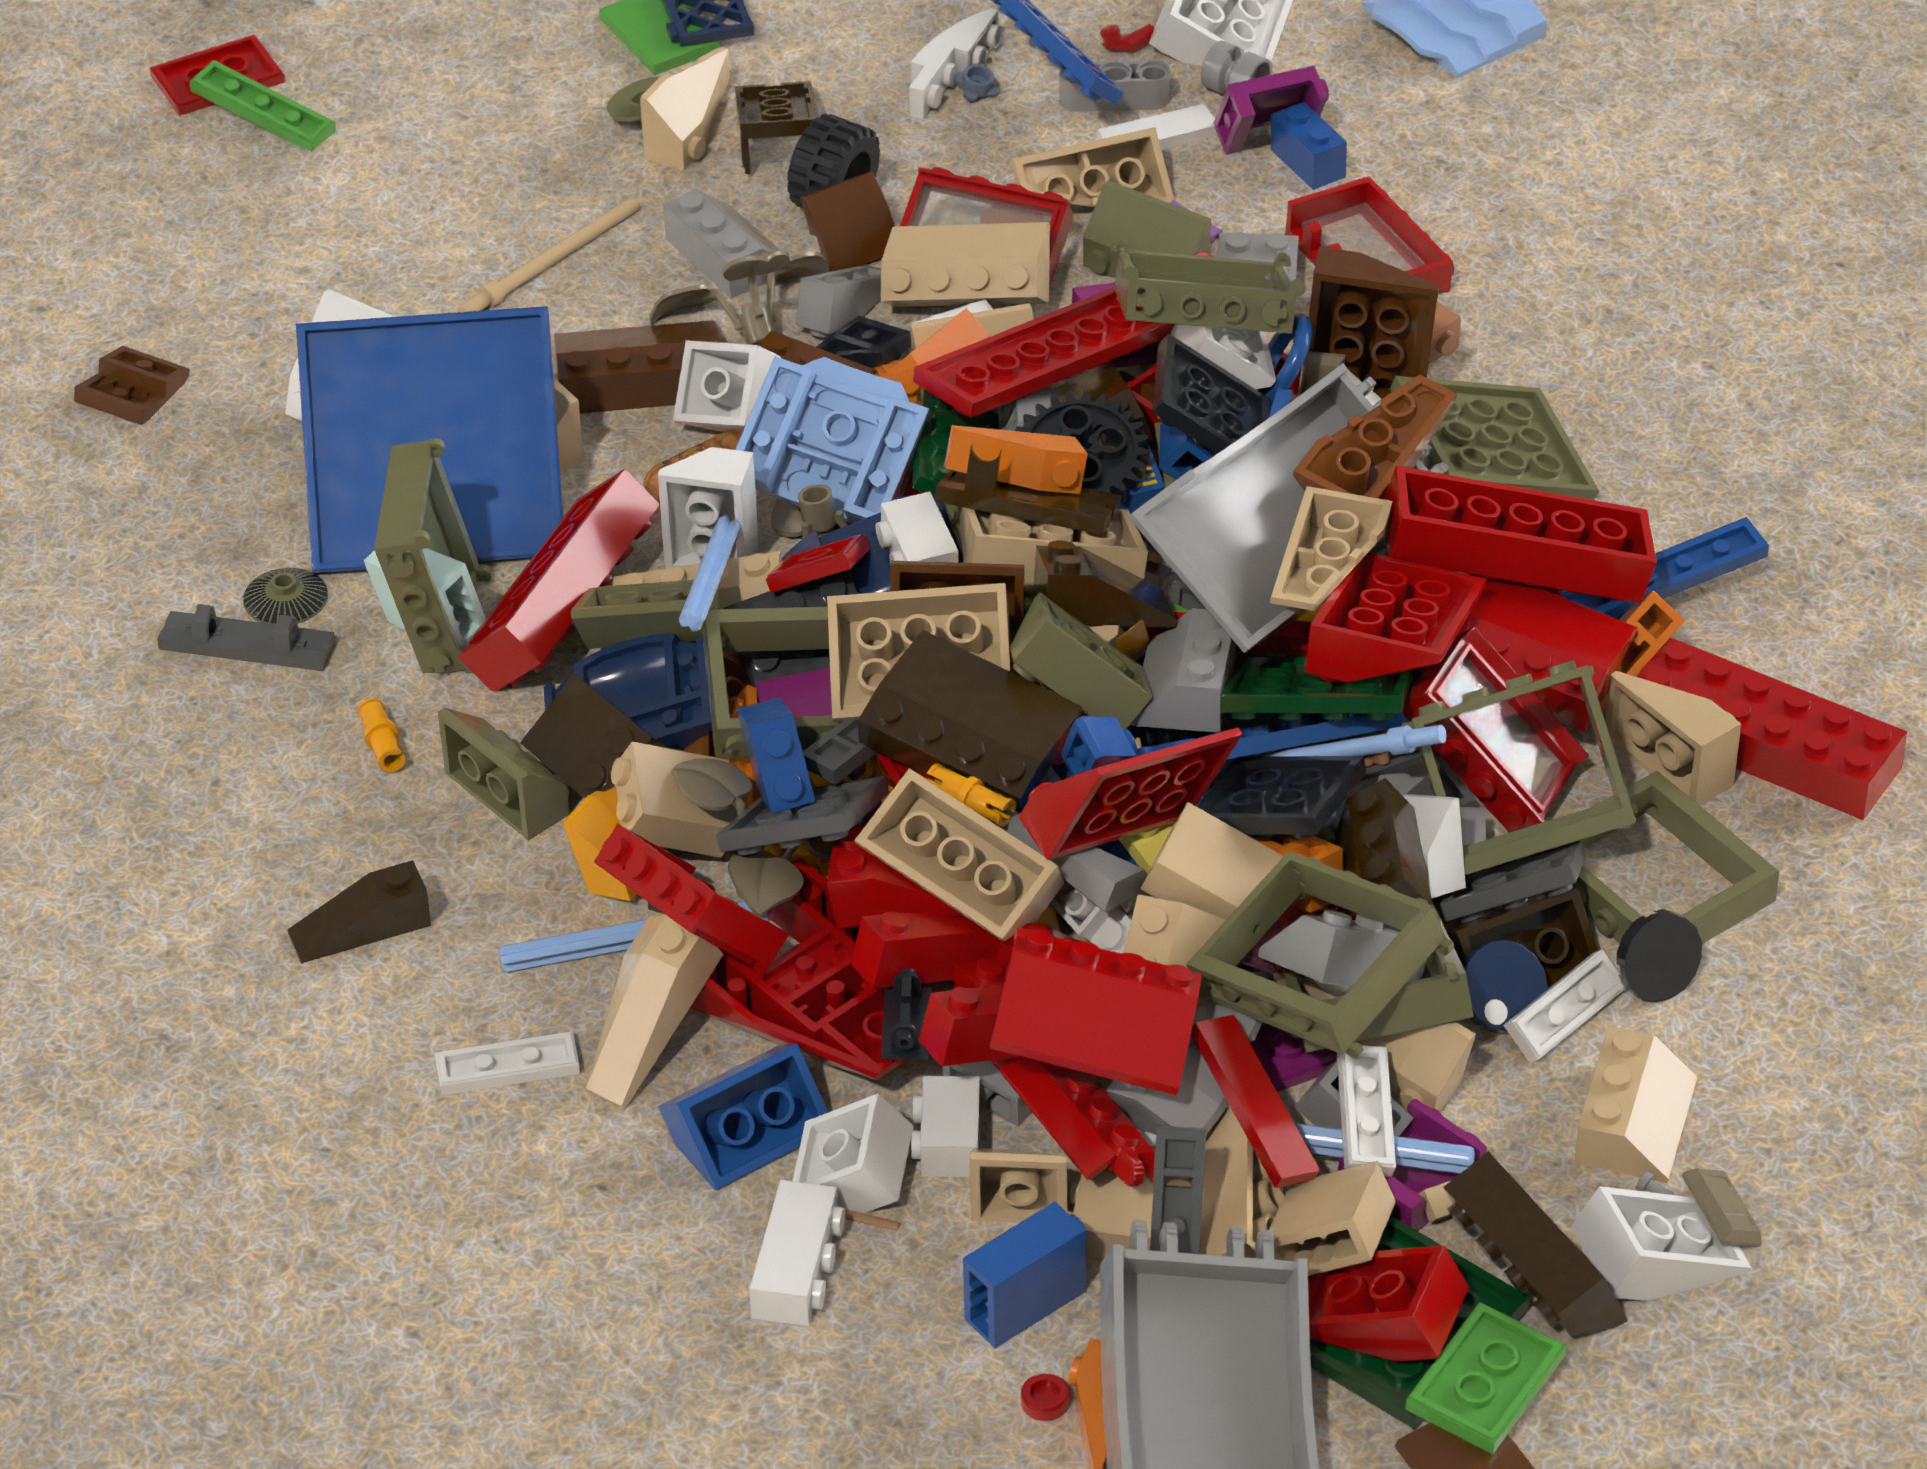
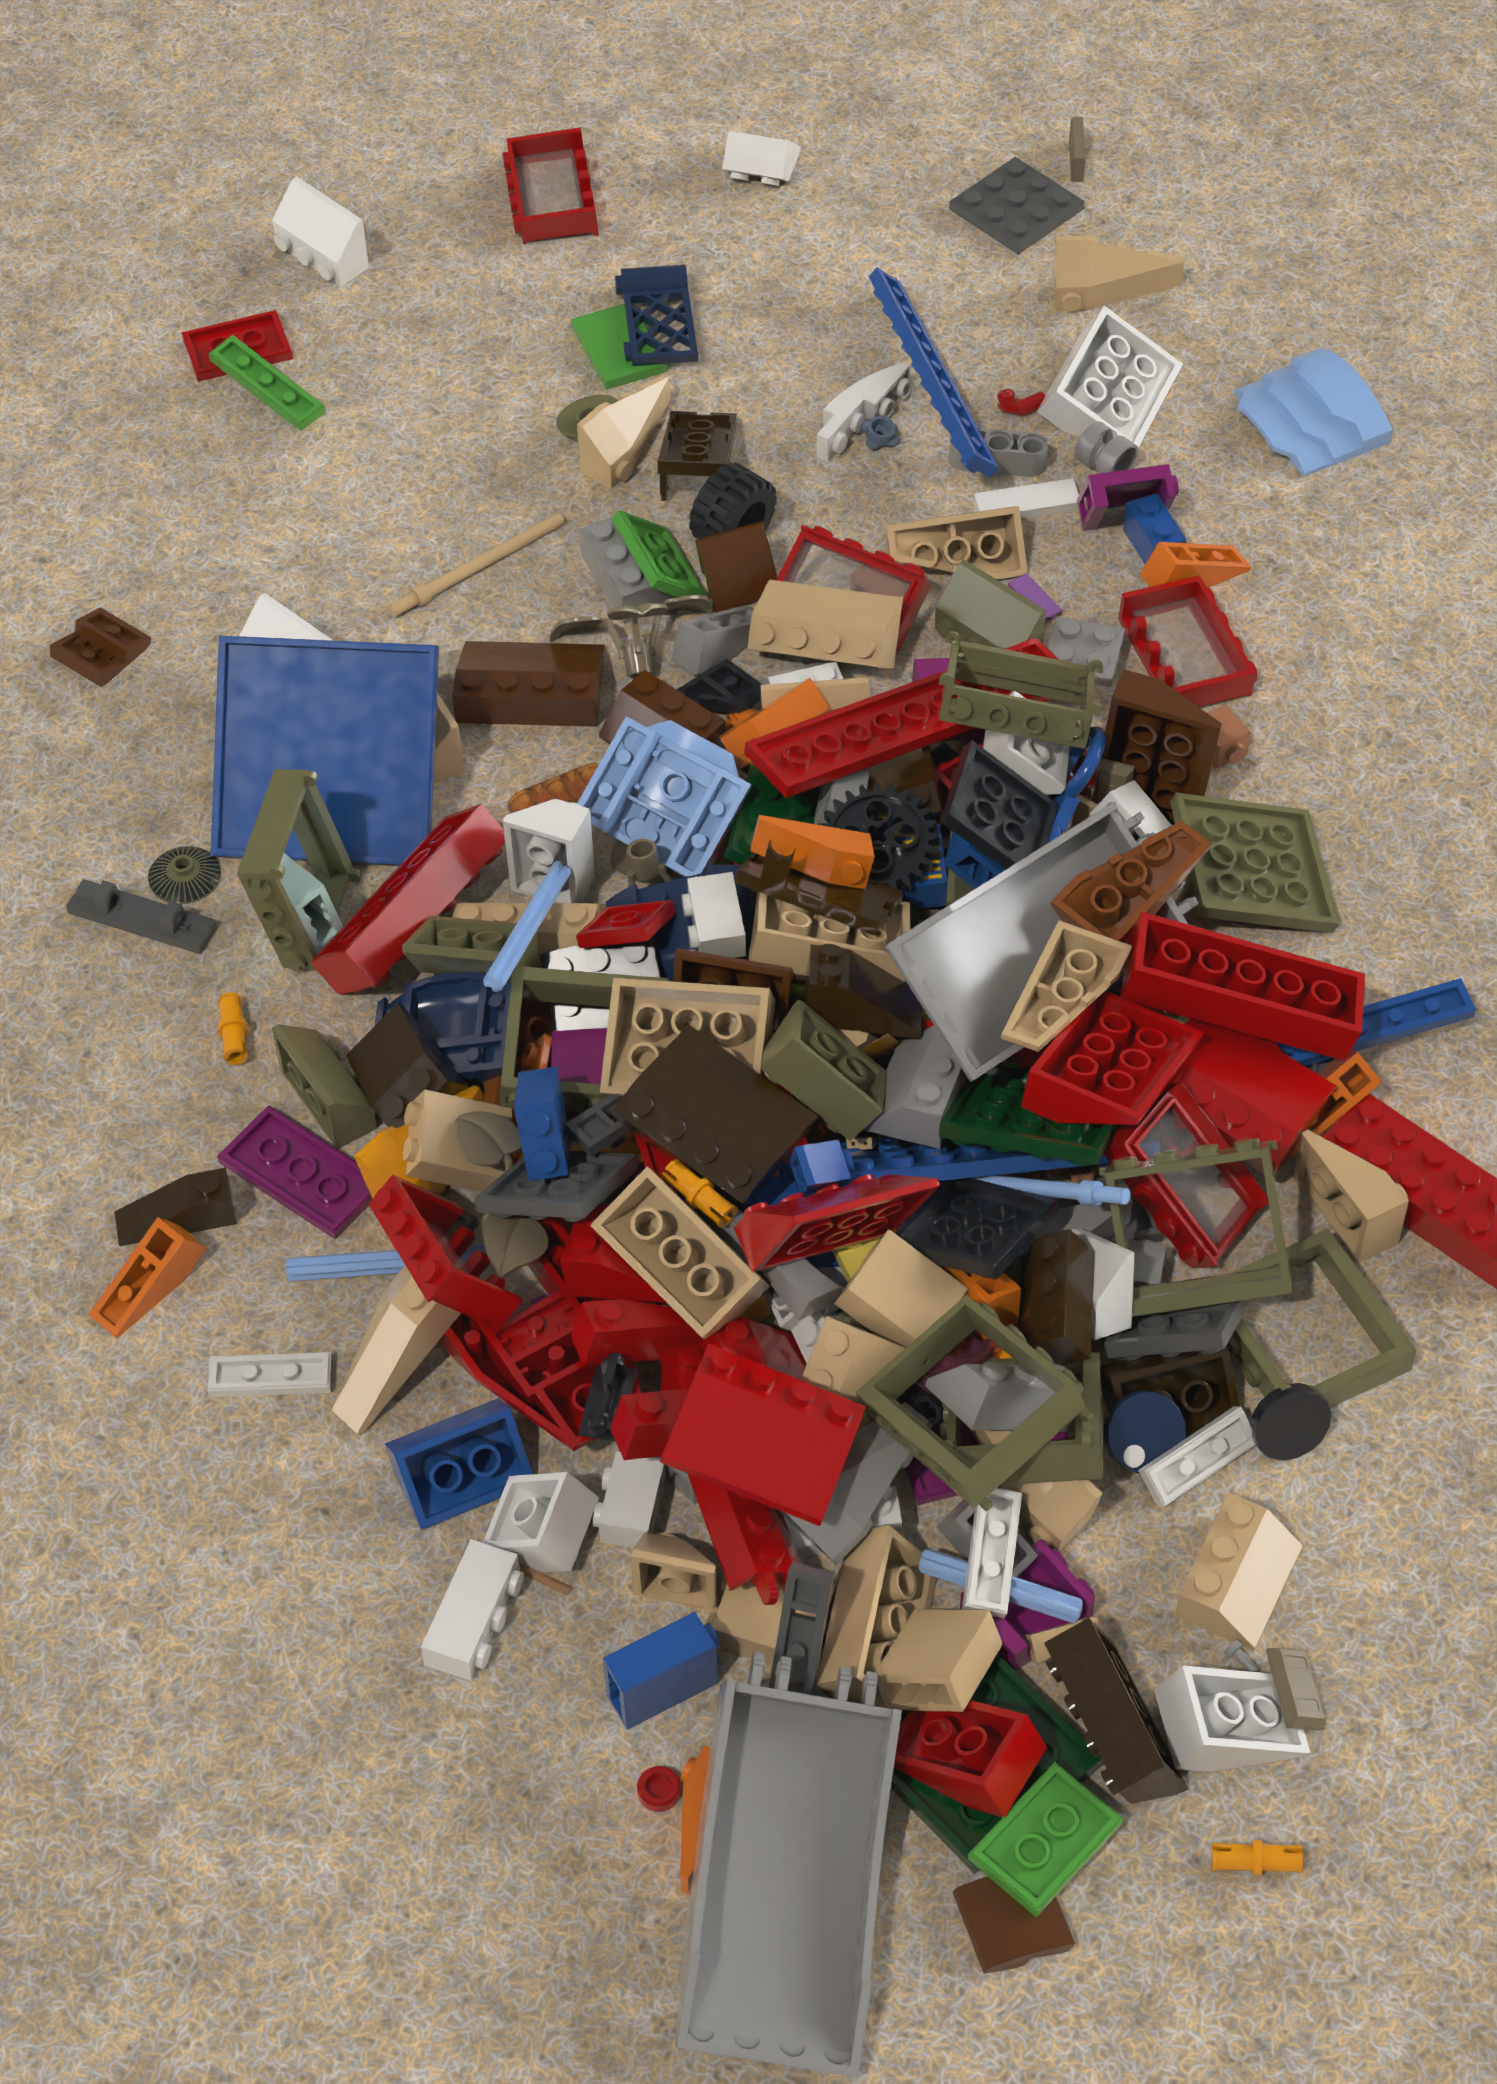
camera: 10 degrees right, 10 degrees up
(345, 981) = (148, 1276): none -> orange slope
(494, 865) = (298, 1171): none -> magenta tile
(720, 384) = (589, 718): white slope -> none
(753, 218) = (657, 555): none -> bright green tile
(1254, 1101) = (892, 1533): red tile -> none
(1343, 164) = (1185, 560): none -> orange slope
(1718, 1369) = (1257, 1857): none -> light orange pin

